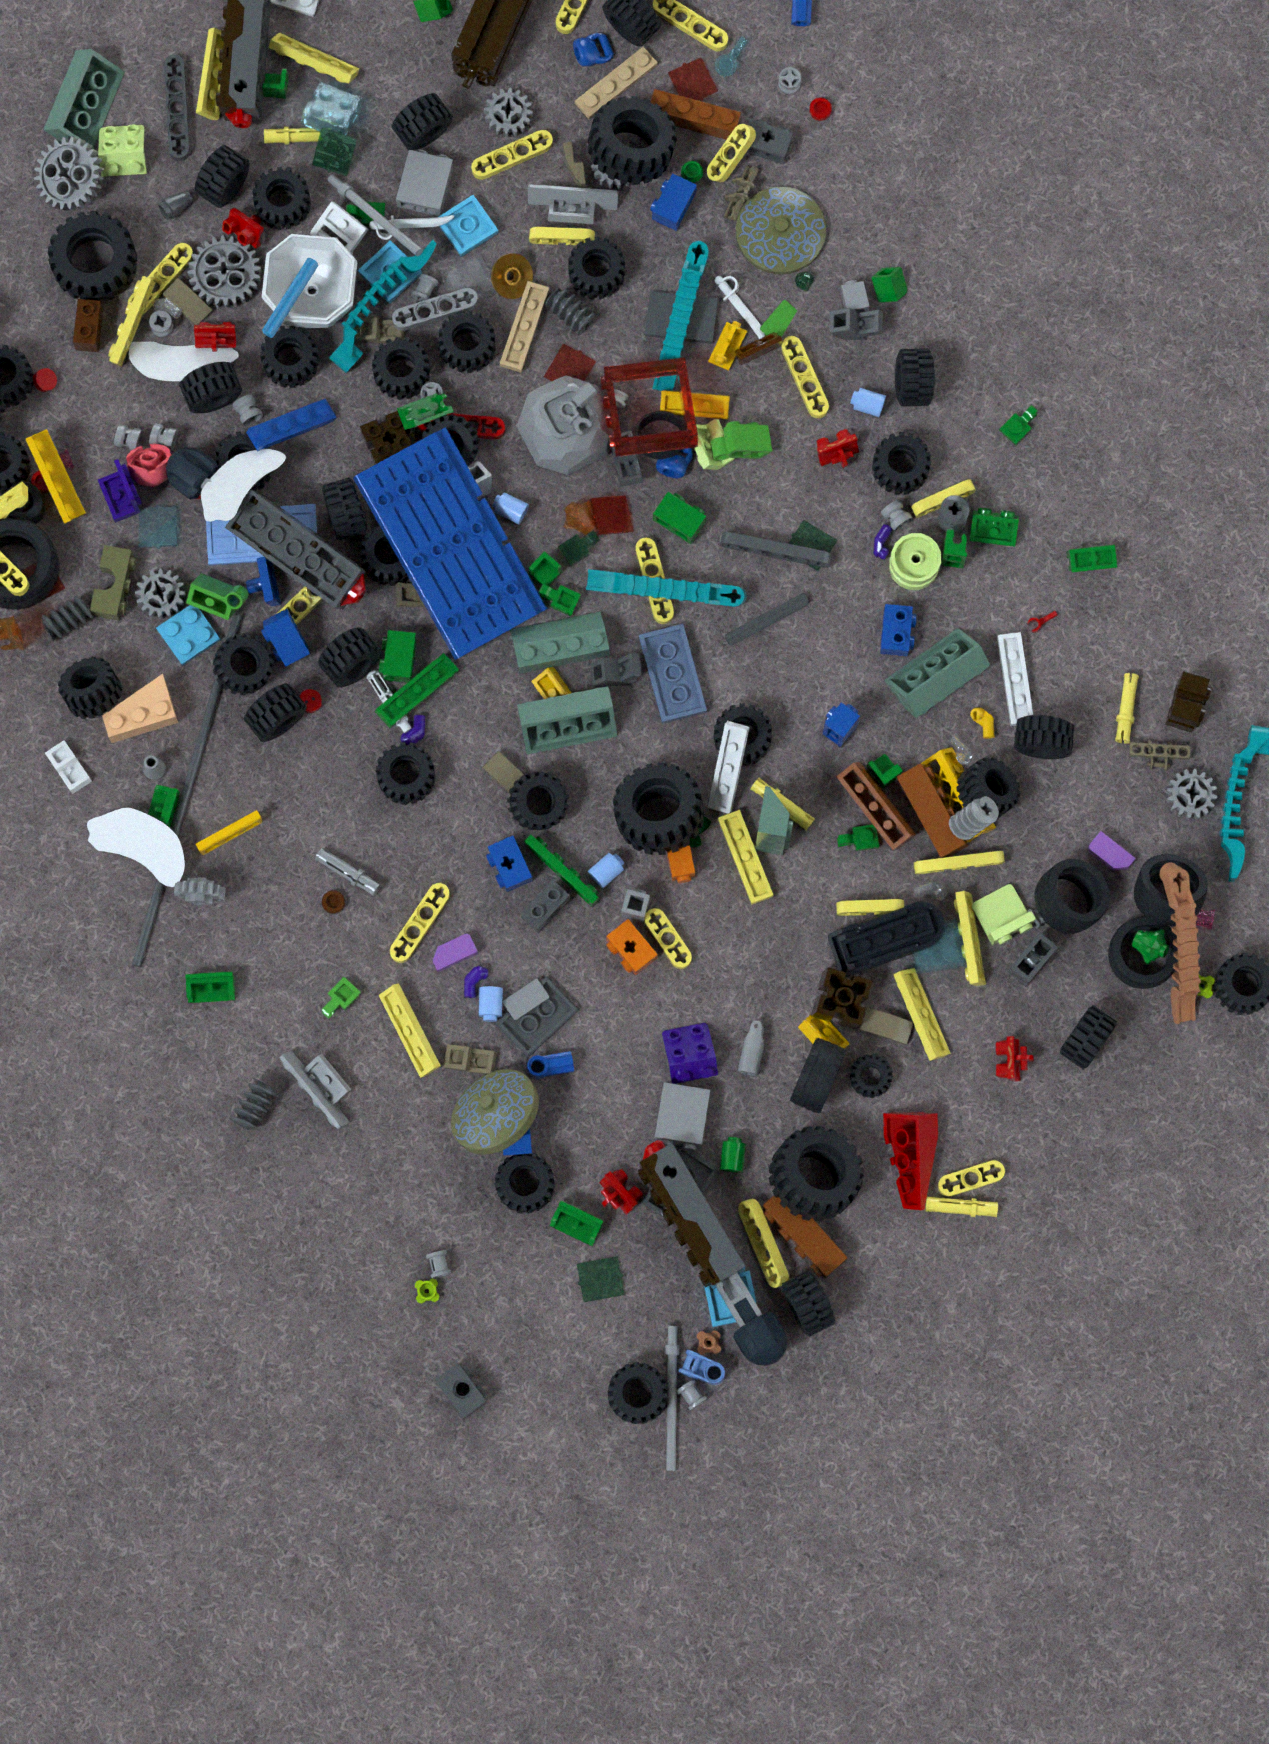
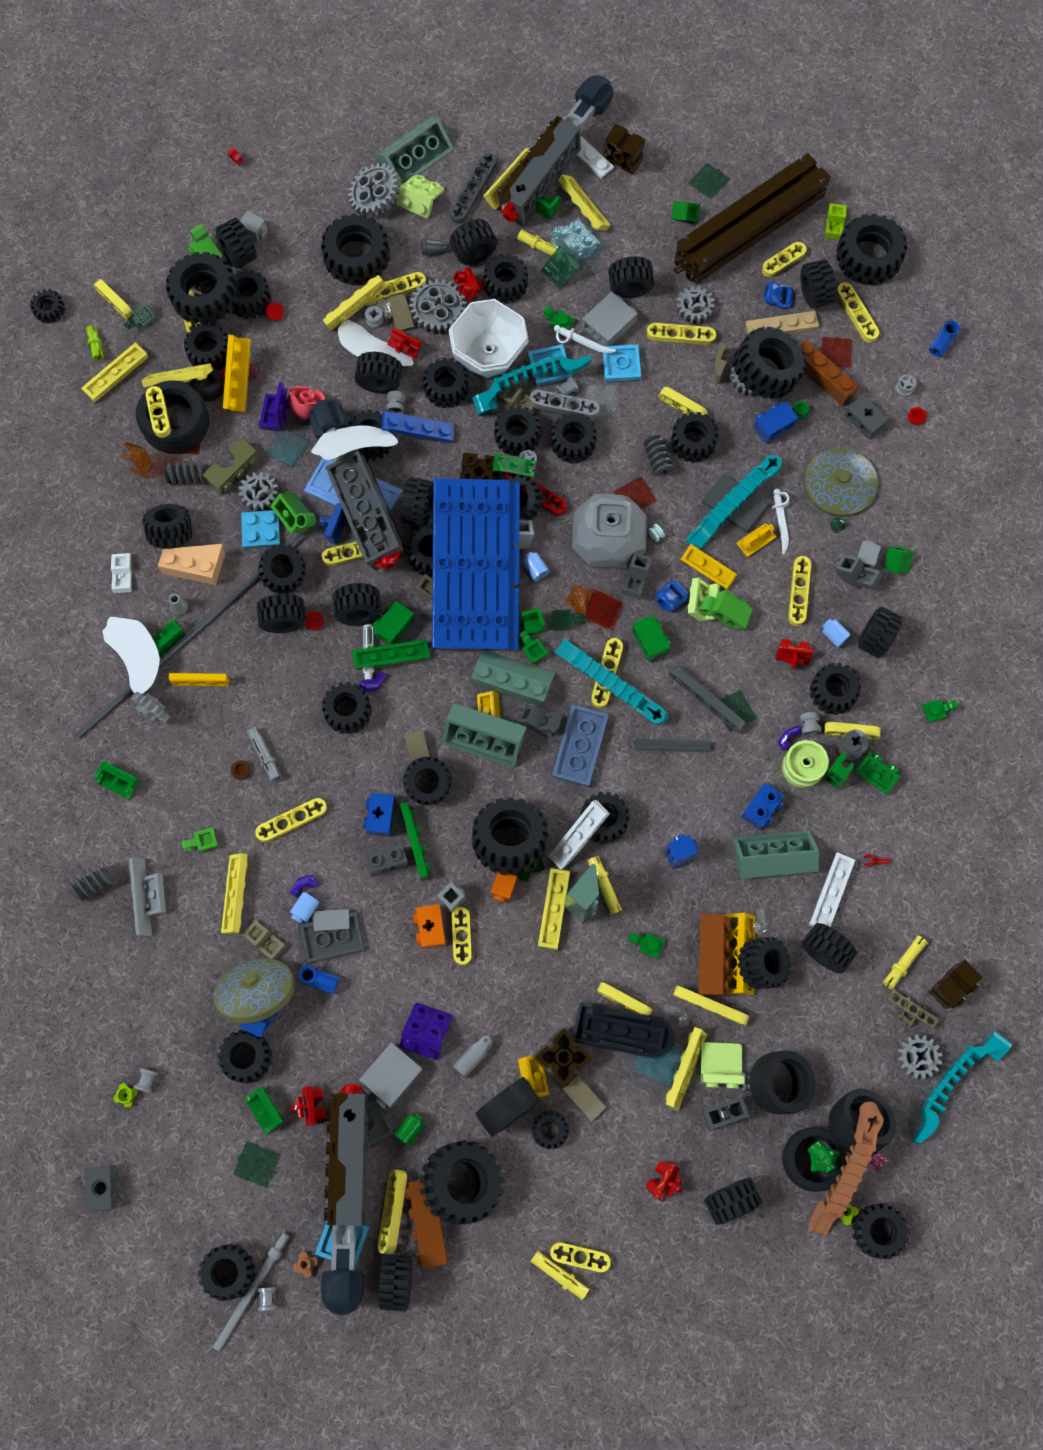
camera: 30 degrees right, 5 degrees down
(88, 325) = (324, 291): reddish brown brick -> none
(128, 437) = (302, 376): light grey wheel -> none
(163, 436) = (328, 389): light grey wheel -> none
(285, 637) = (322, 567): blue brick -> none
(290, 297) = (466, 338): dark azure axle -> none
(342, 224) = (536, 317): white plate -> none
(347, 191) = (553, 299): light grey bar -> none
(454, 952) = (301, 855): medium lavender piece -> none
(520, 273) = (640, 411): pearl gold dish -> none
(524, 326) = (619, 450): tan plate -> none
(568, 409) = (614, 516): light grey bar -> none
(572, 203) = (703, 385): light grey bracket -> none
(606, 869) = (447, 859): light blue brick -> none
(651, 442) = (665, 574): clear red window -> none
(663, 416) = (669, 587): black tyre -> none
(700, 1368) = (286, 1281): medium blue piece -> none
(726, 64) = (867, 352): clear light blue plate -> none
(739, 198) = (823, 444): dark tan piece -> none
(740, 151) = (849, 407): light yellow beam -> none
(758, 348) = (777, 553): reddish brown slope -> none
(779, 319) = (802, 543): bright green sticker -> none
(876, 805) = (672, 926): dark orange brick -> none
(884, 770) = (694, 904): green panel -> none
(914, 1148) = (551, 1205): red wedge -> none
(921, 1014) = (616, 1105): light yellow plate -> none
(974, 818) = (740, 978): light grey piece -> none
(985, 720) = (791, 909): yellow arm -> none
(1092, 558) = (940, 835): green hinge -> none
(1110, 853) = (831, 1065): medium lavender piece -> none

